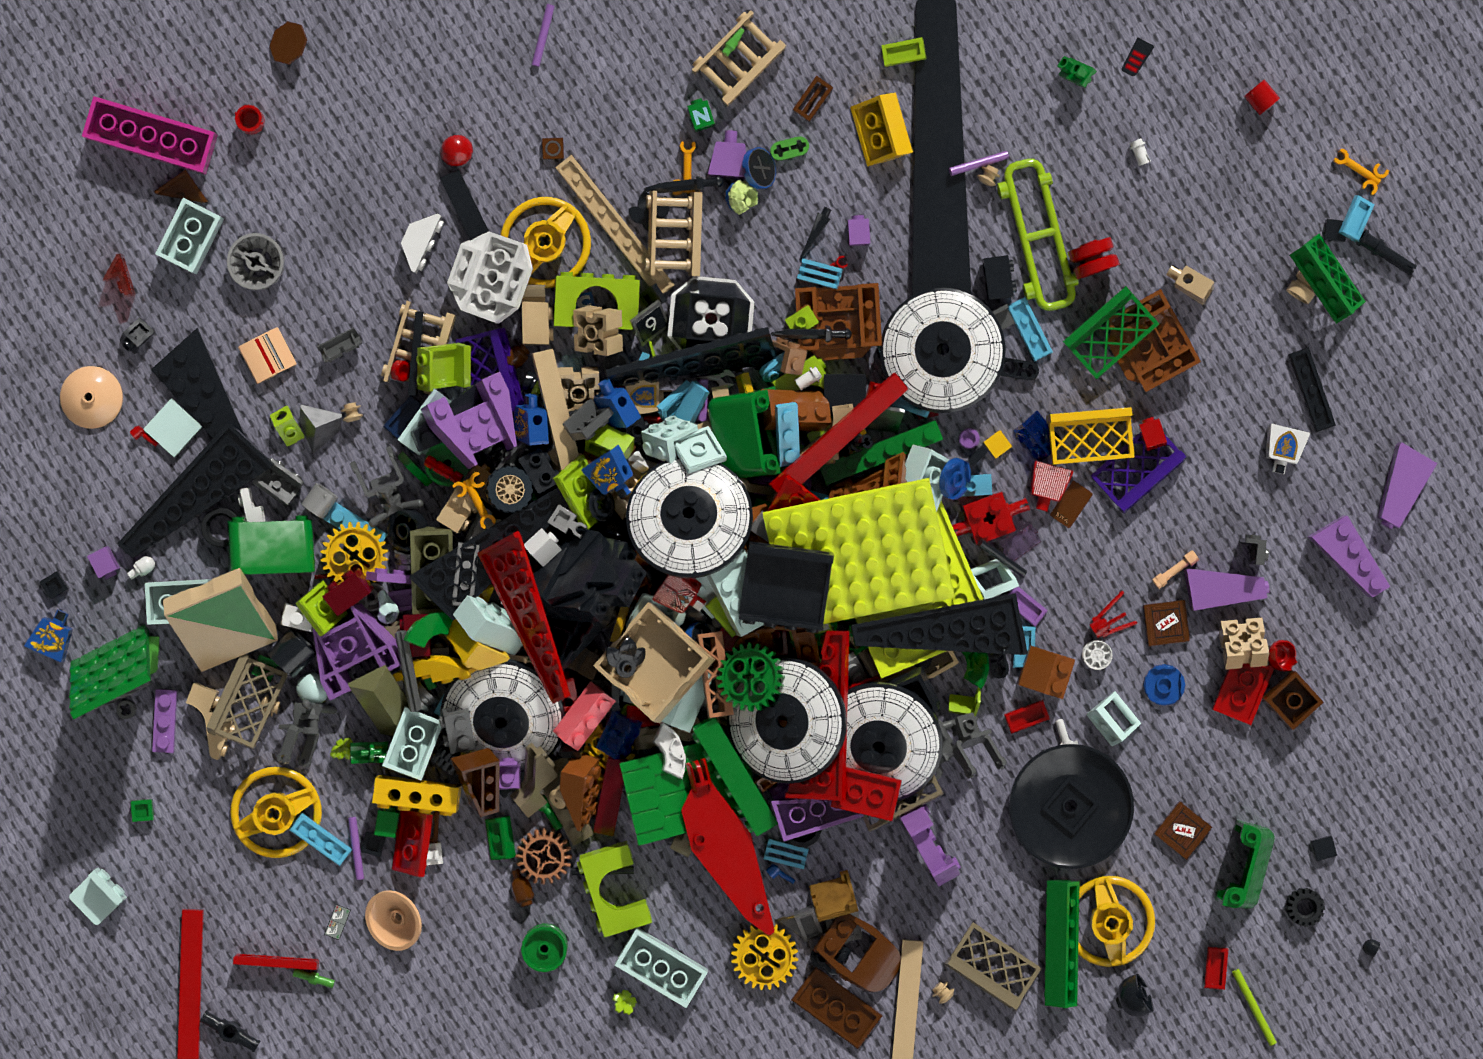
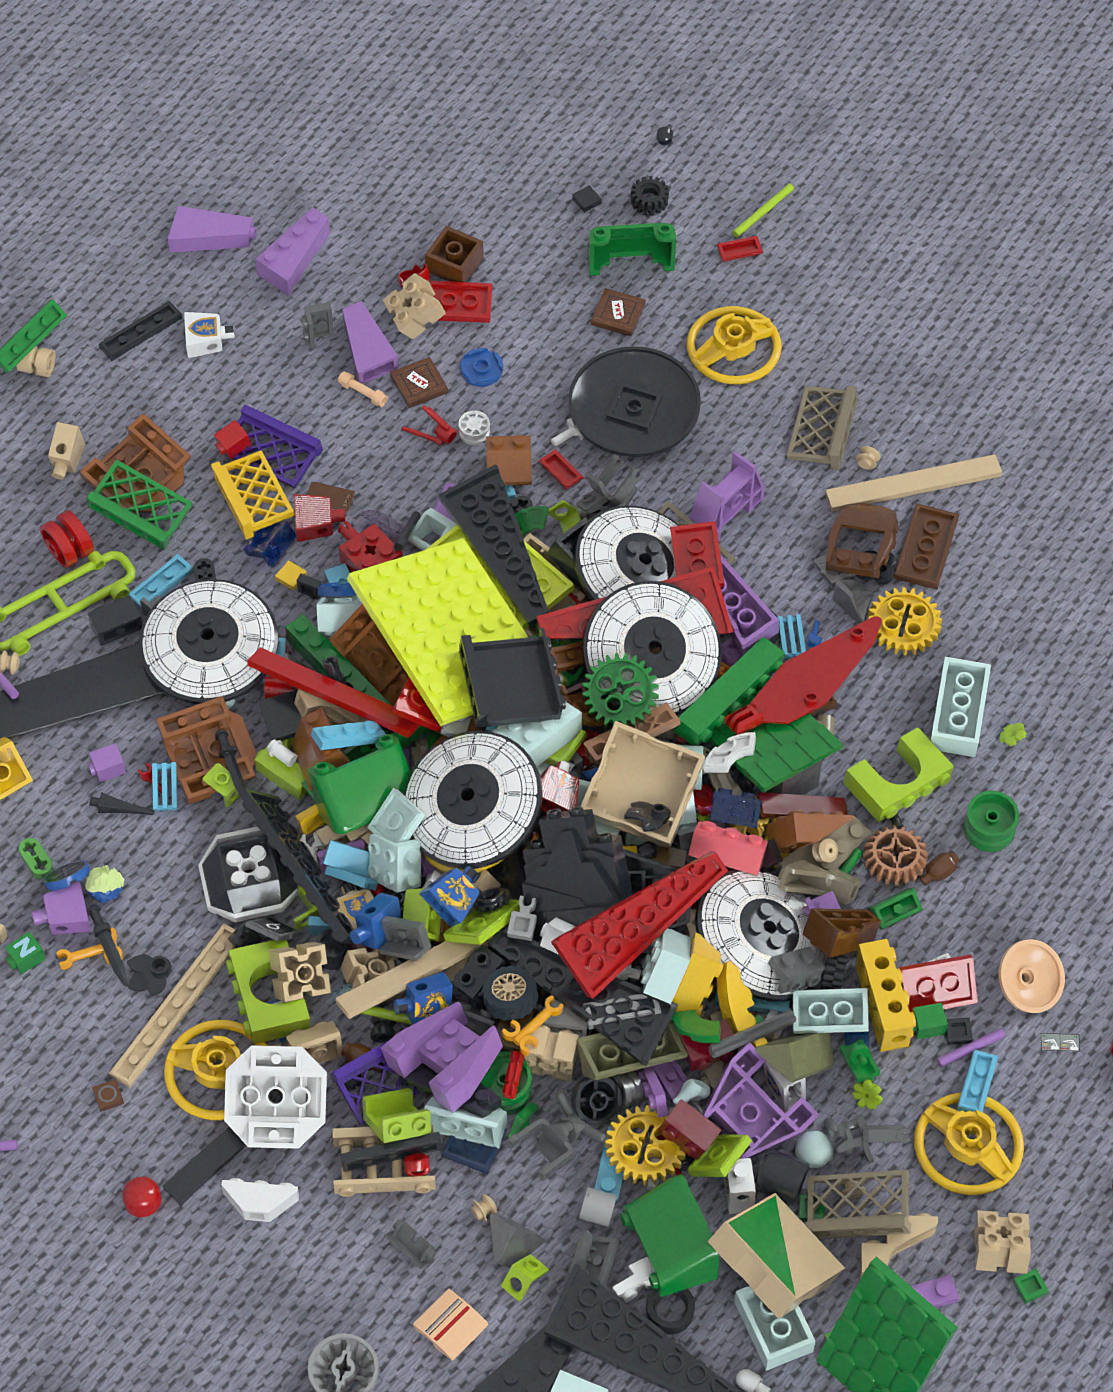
camera: 110 degrees left, 30 degrees down
(175, 790) = (1002, 1242): none -> tan brick
(691, 244) = (161, 916): tan fence -> none
(771, 370) = (284, 796): medium azure plate -> none
(793, 357) = (264, 769): medium nougat bracket -> none
(834, 897) = (816, 574): pearl gold piece -> none
(969, 438) = (294, 602): medium lavender tile -> none
(1062, 943) = (773, 371): green brick -> none
(1107, 725) = (538, 401): light aqua tile -> none
(1133, 996) = (798, 299): black cylinder -> none

